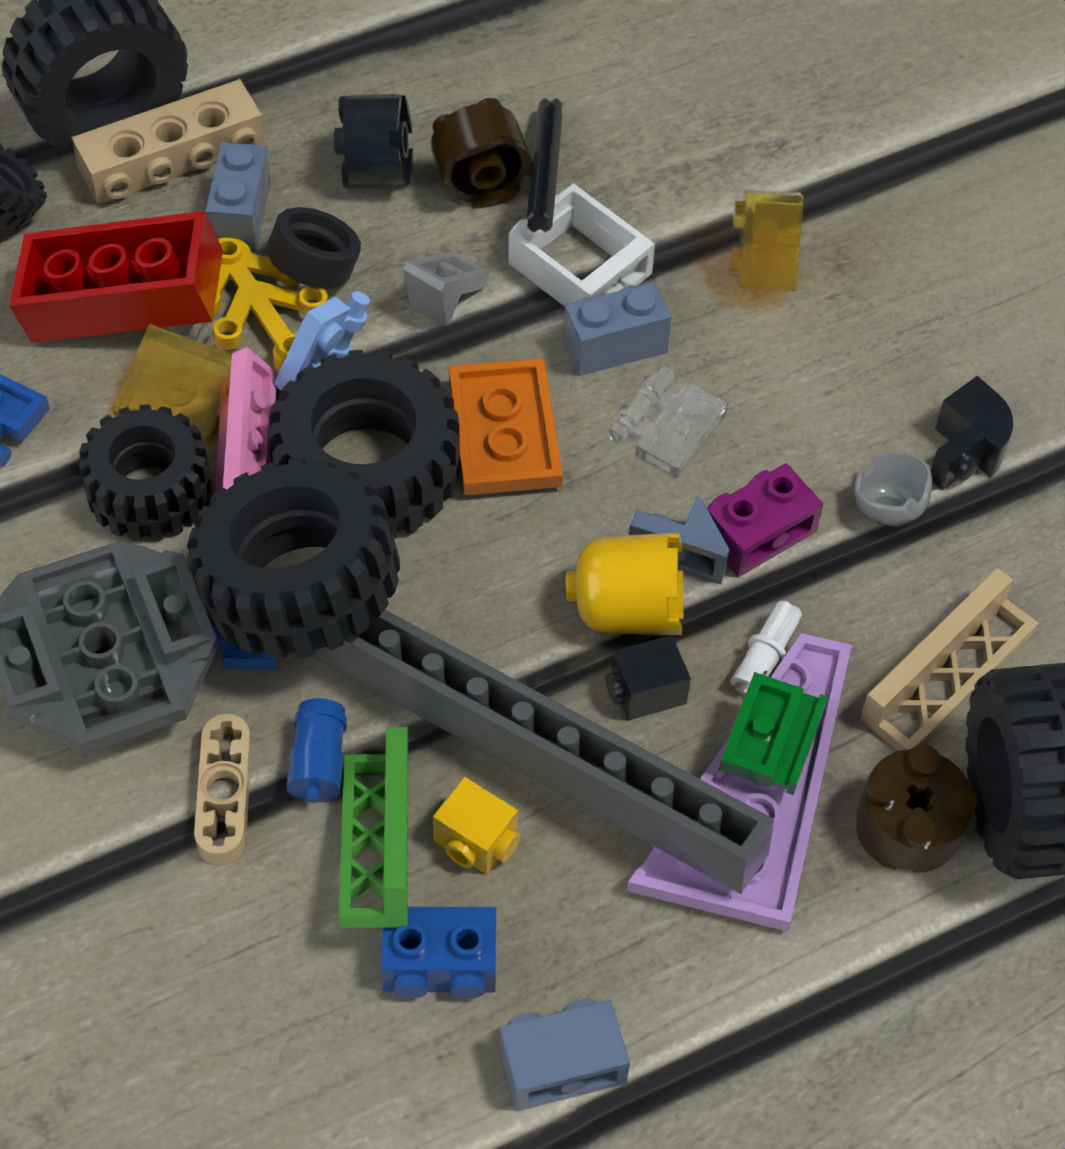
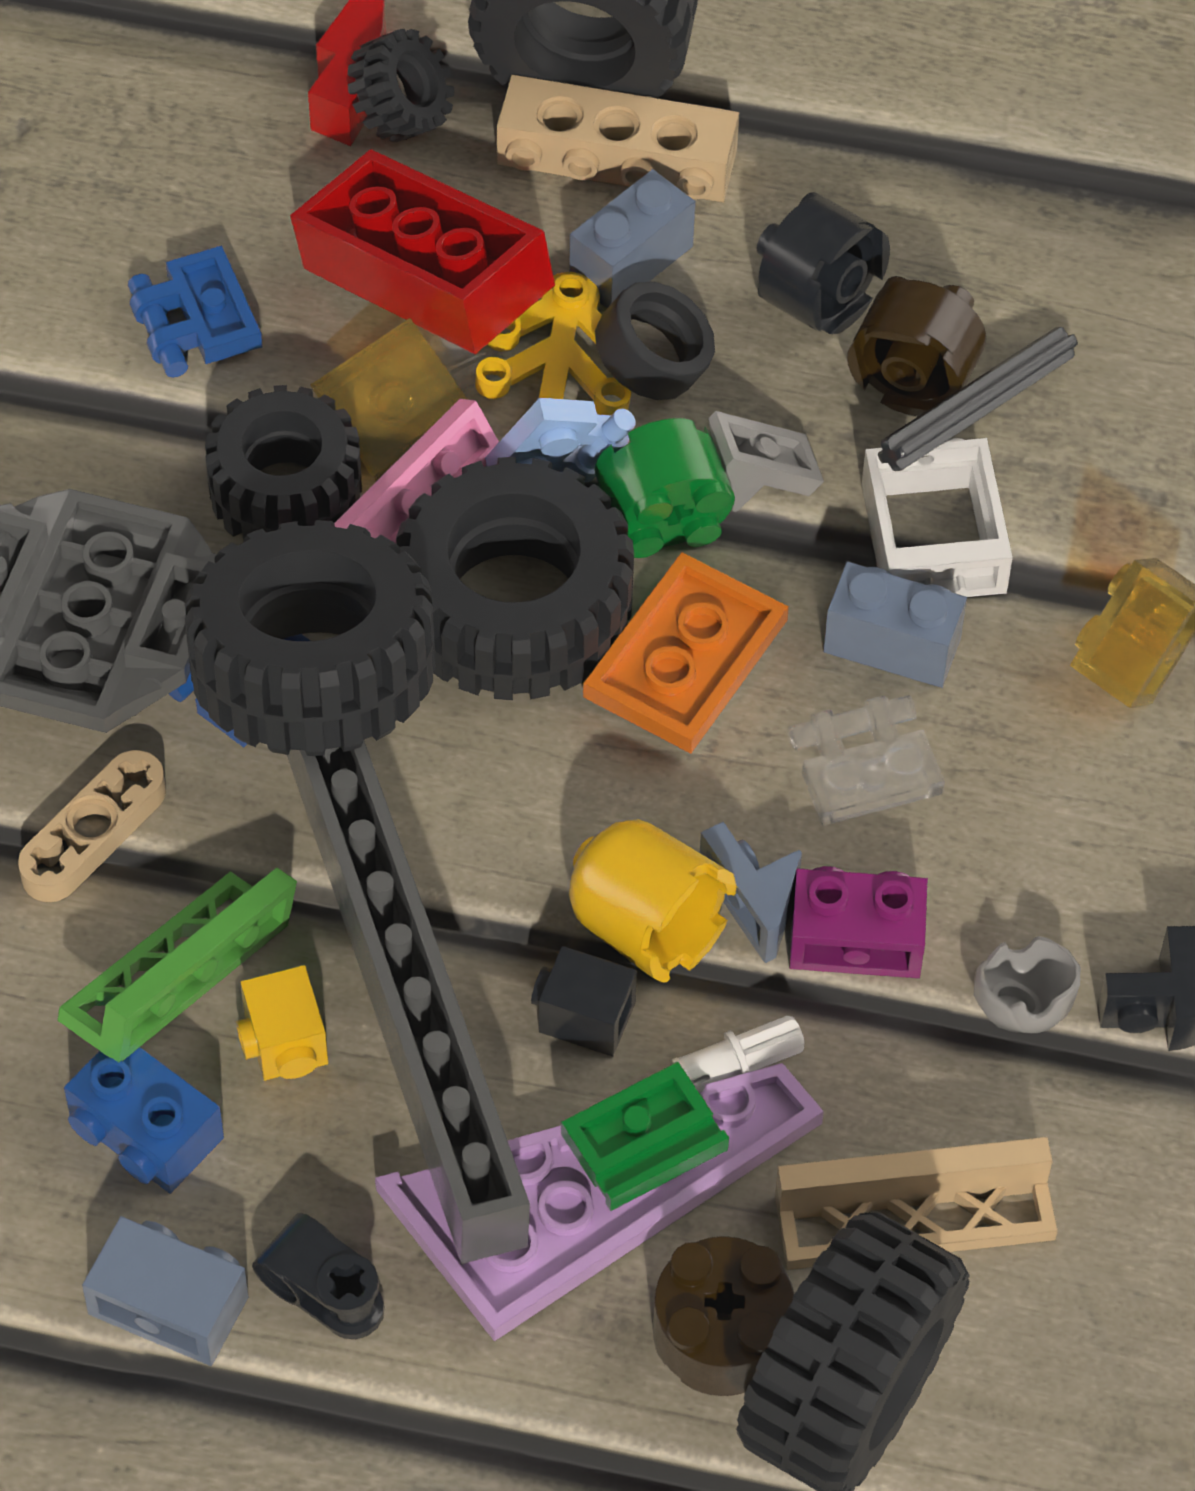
camera: 40 degrees right, 0 degrees up
(317, 751) = (201, 851): blue piece -> none
(410, 323) = (667, 485): none -> green brick
(645, 969) = (315, 1270): none -> black piece

